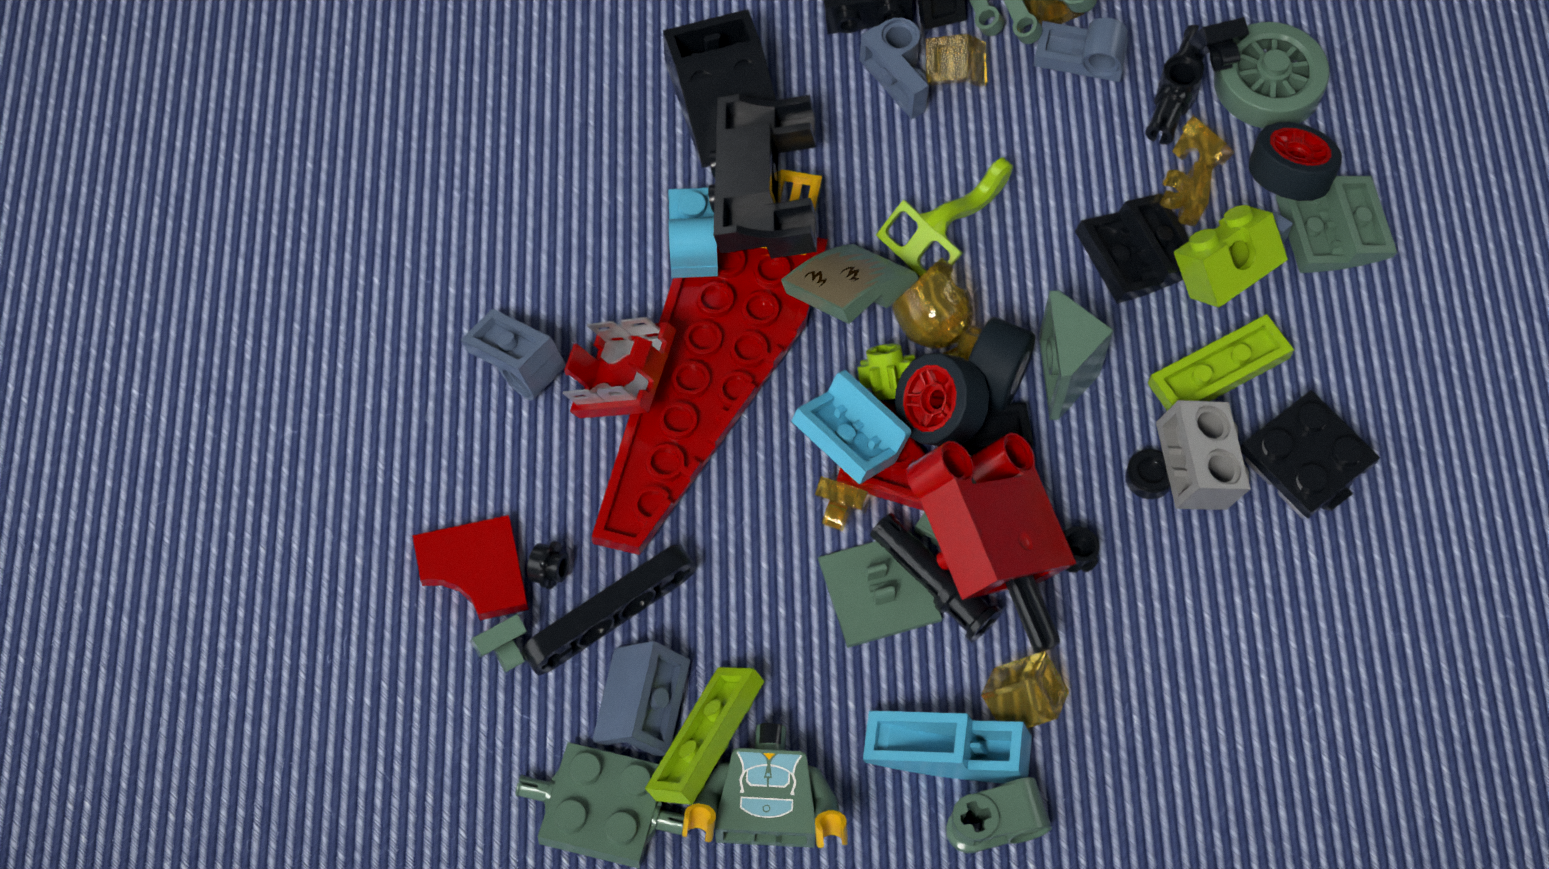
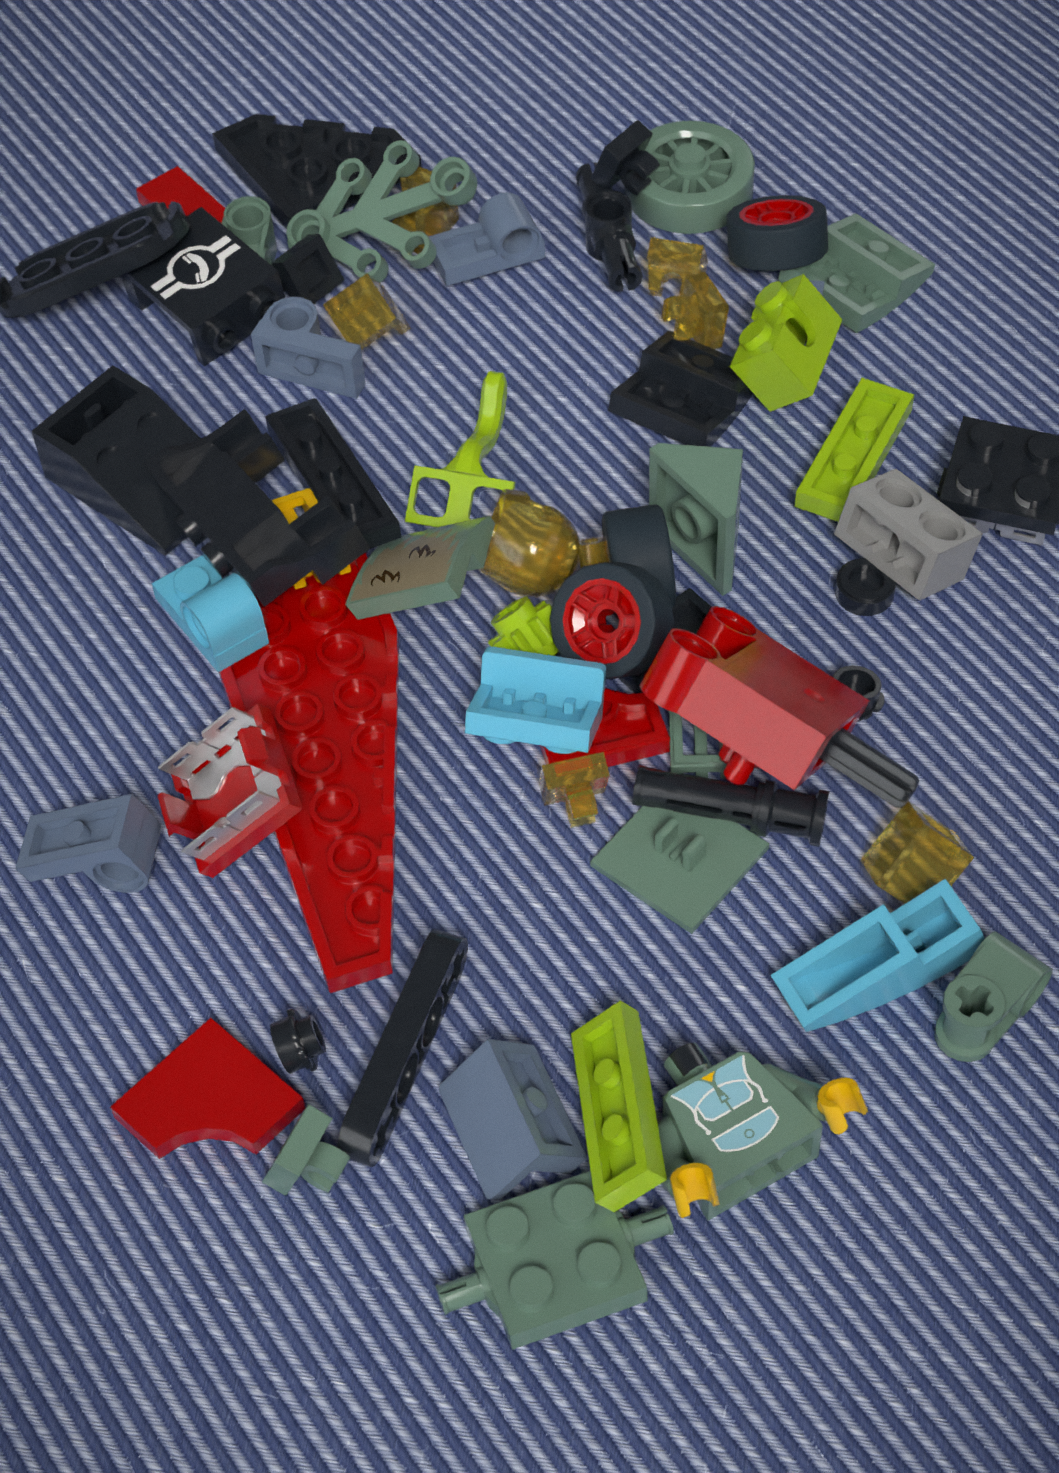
camera: 30 degrees left, 10 degrees down
(846, 174) = (330, 468): none -> black tile

